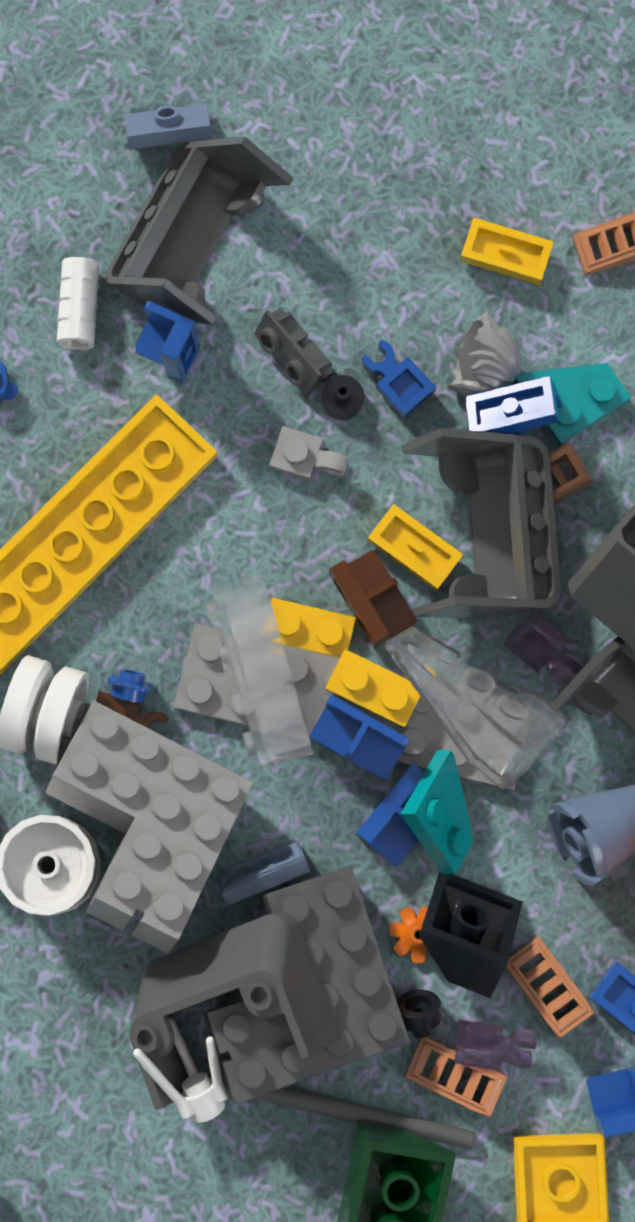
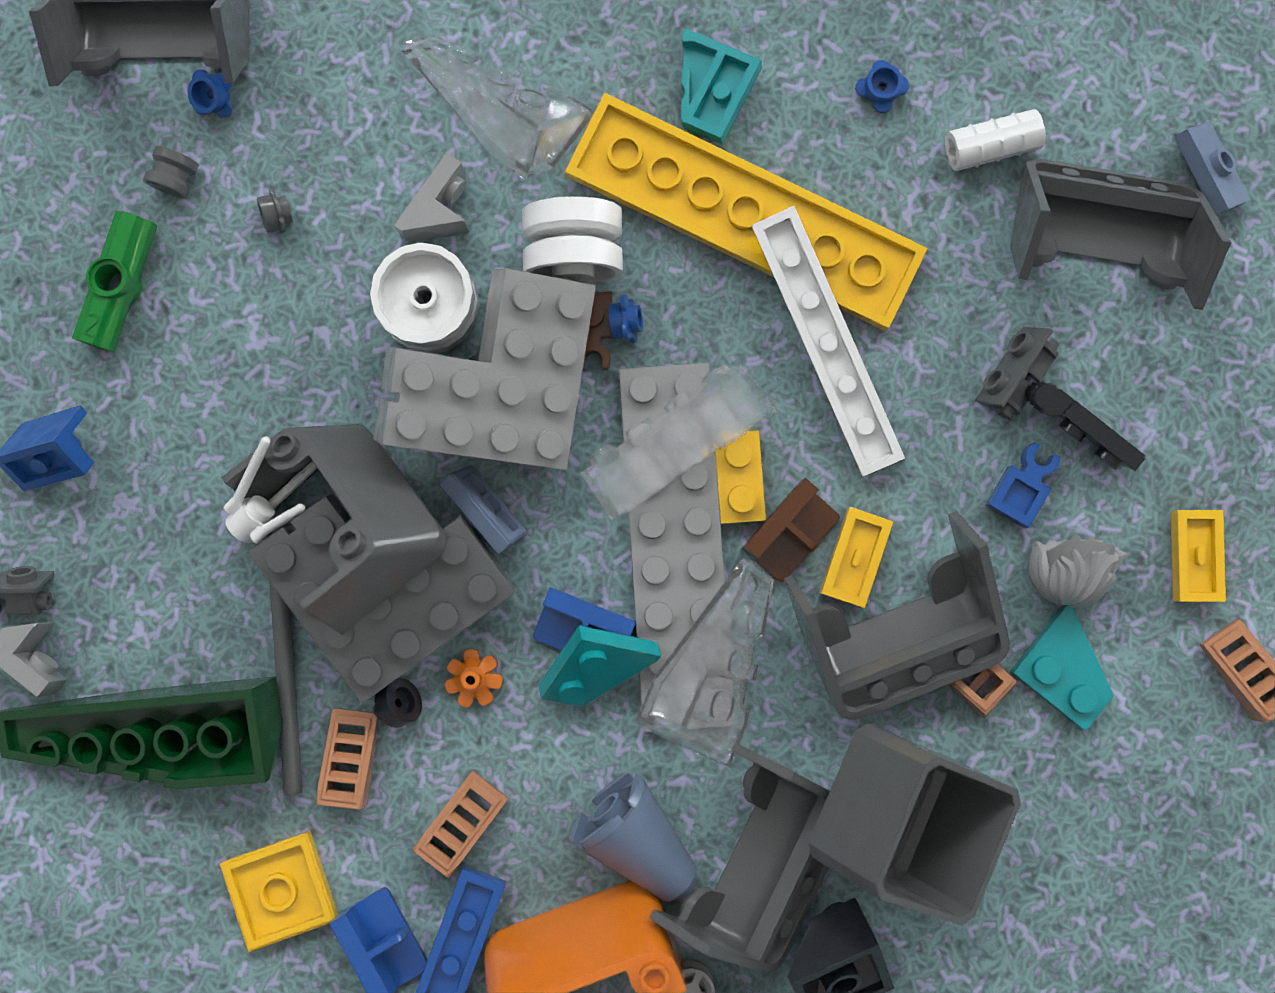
camera: 70 degrees right, 5 degrees up
(168, 341) = (986, 241): blue panel -> none
(211, 508) = (828, 341): none -> white plate
(301, 454) = (913, 412): light grey plate -> none
(342, 406) = (977, 438): black tile -> none
(358, 312) = (1081, 423): none -> black hinge
(358, 738) = (643, 560): blue panel -> none
(373, 688) = (698, 559): yellow plate -> none
(470, 932) = (489, 730): black slope -> none
(486, 1047) = (382, 779): clear purple plate -> none
(515, 407) = (1034, 614): panel -> none
(542, 644) = (798, 716): clear purple plate -> none

